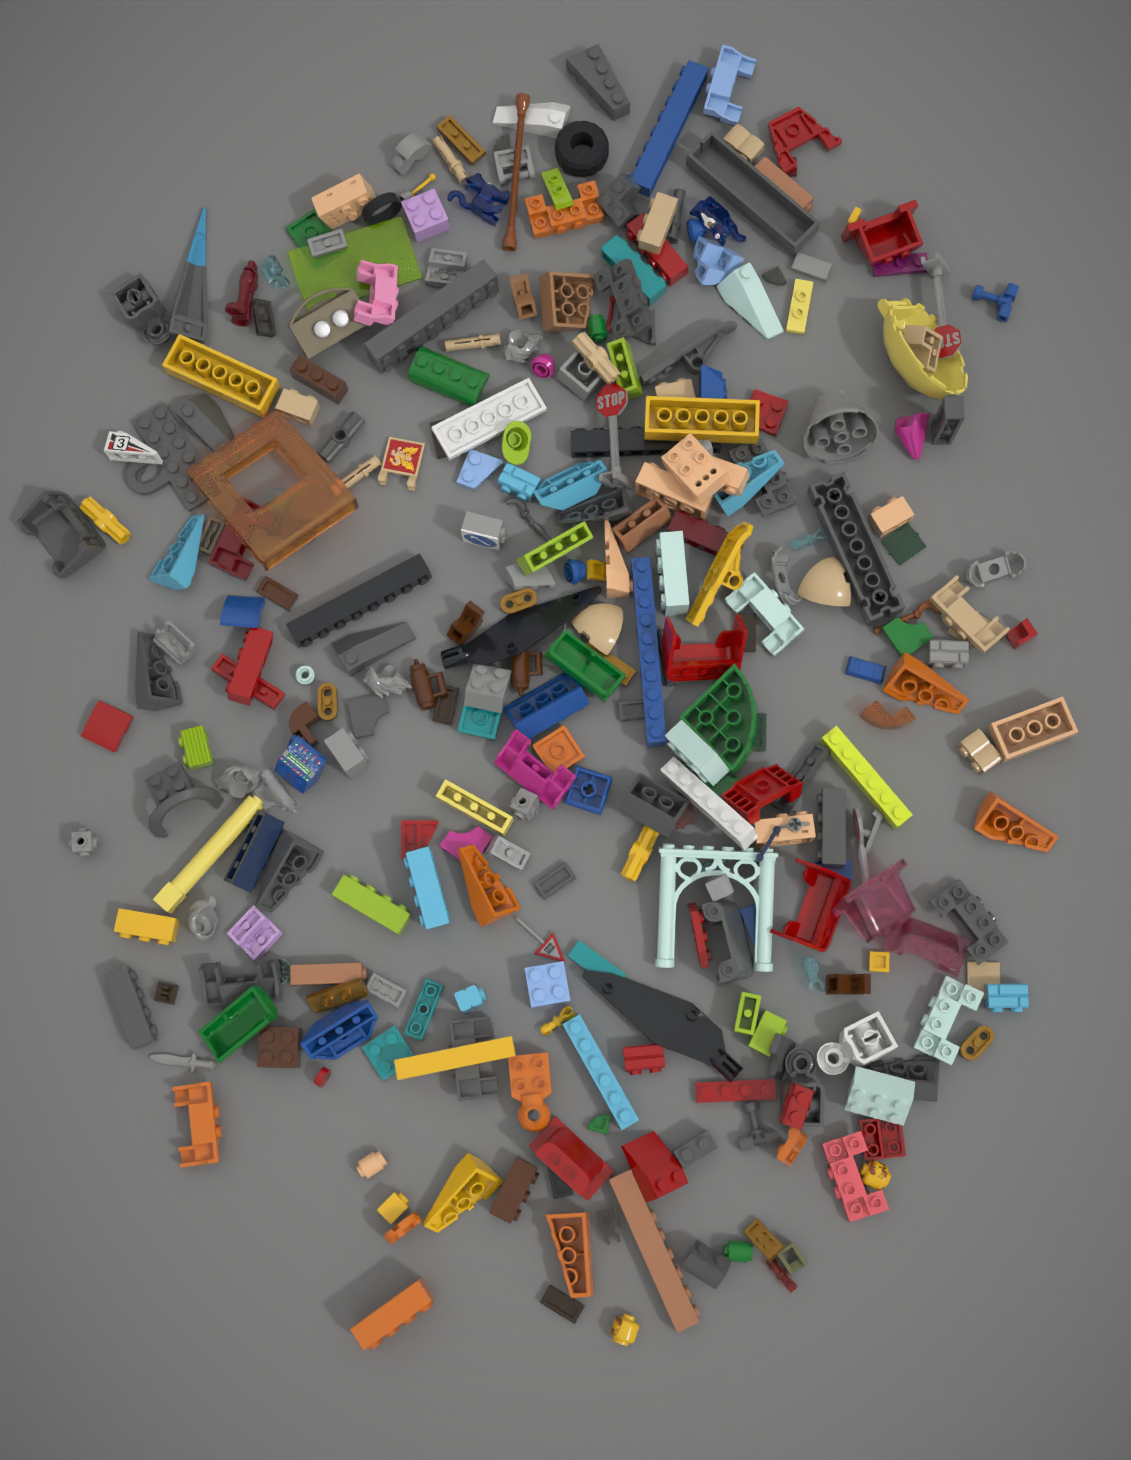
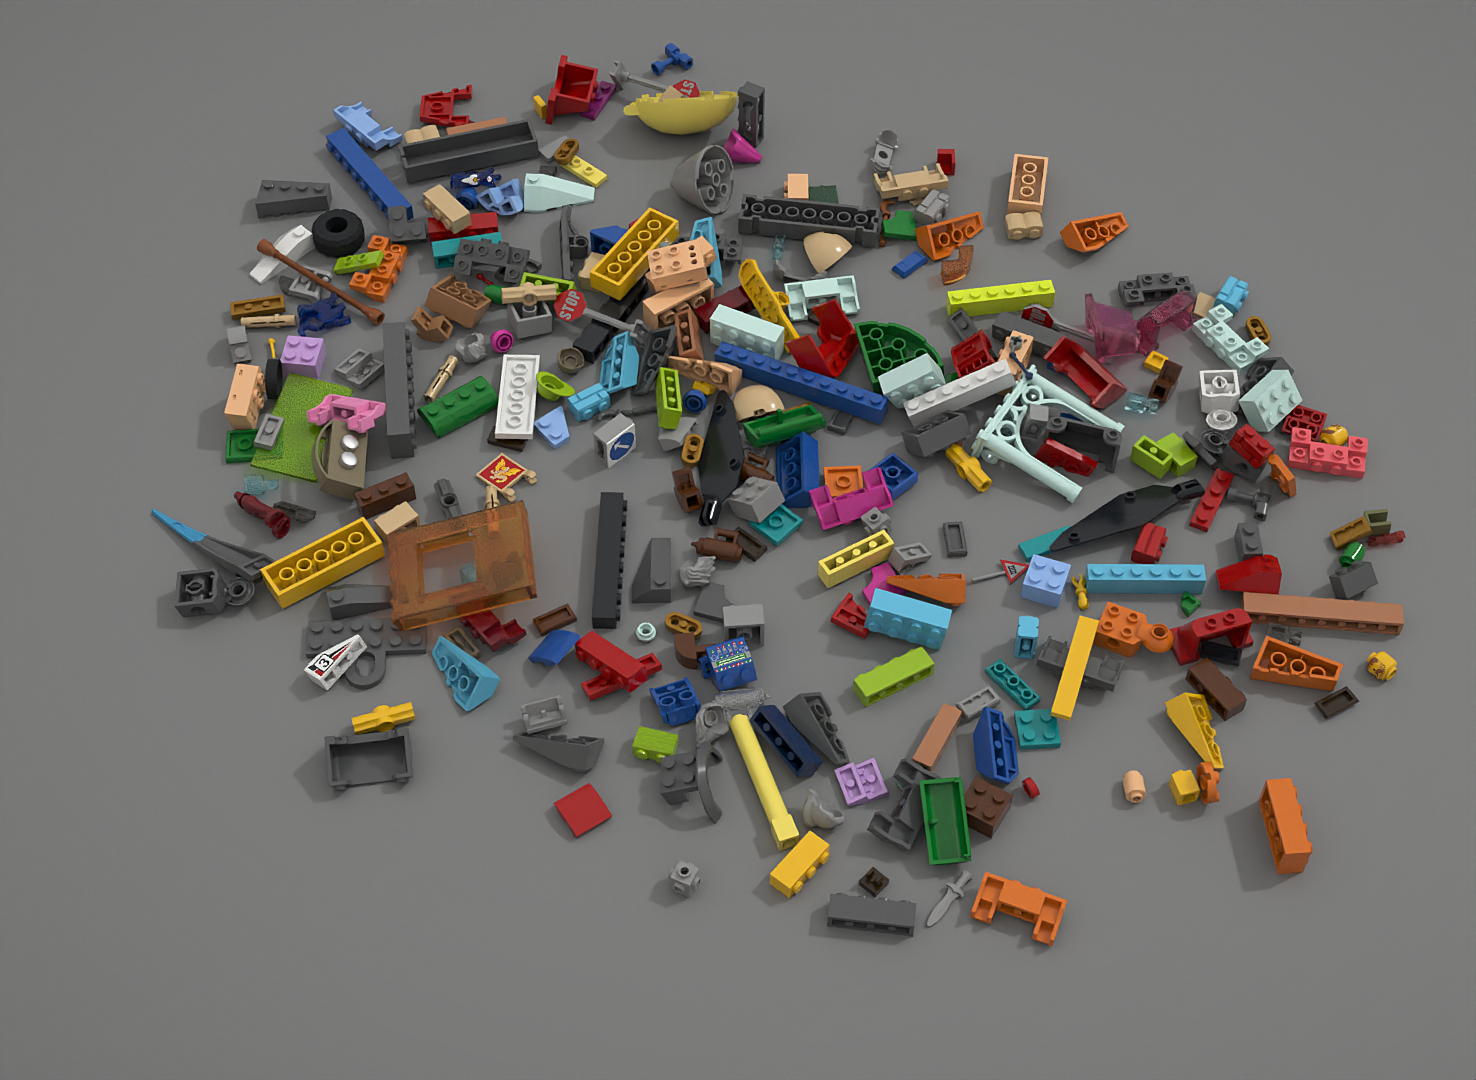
camera: 65 degrees left, 25 degrees down
(247, 739) = (676, 702): none -> blue slope
(337, 995) = (962, 737): pearl gold plate -> none
(555, 437) = (570, 360): none -> dark tan hair
(805, 279) = (566, 151): none -> pearl gold plate

